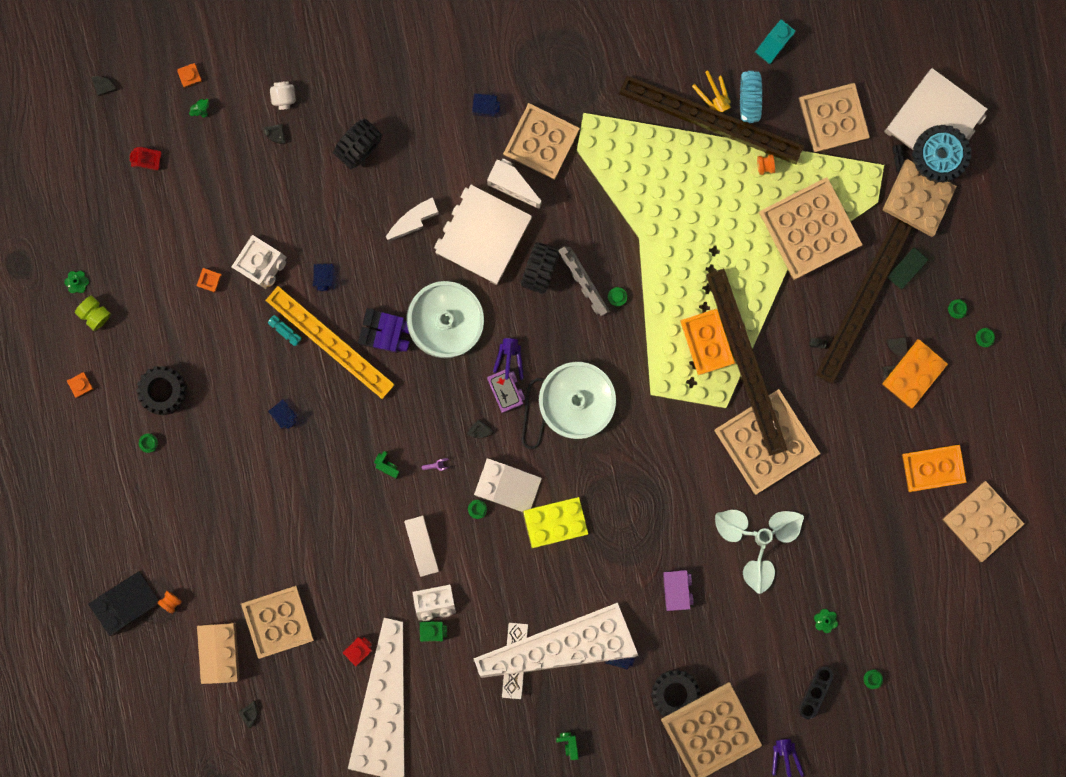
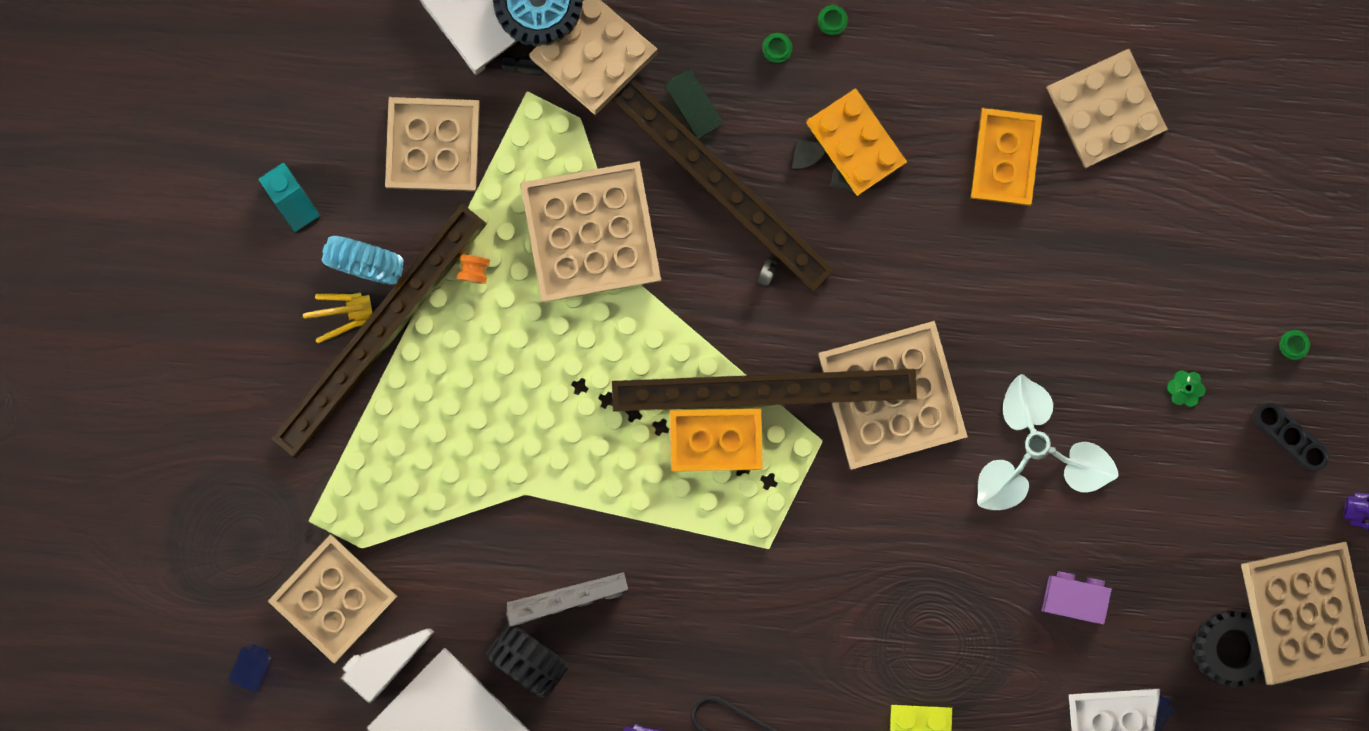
camera: 80 degrees left, 0 degrees up
(577, 400) = (745, 663): light aqua dish -> none
(617, 296) = (604, 554): green plate -> none

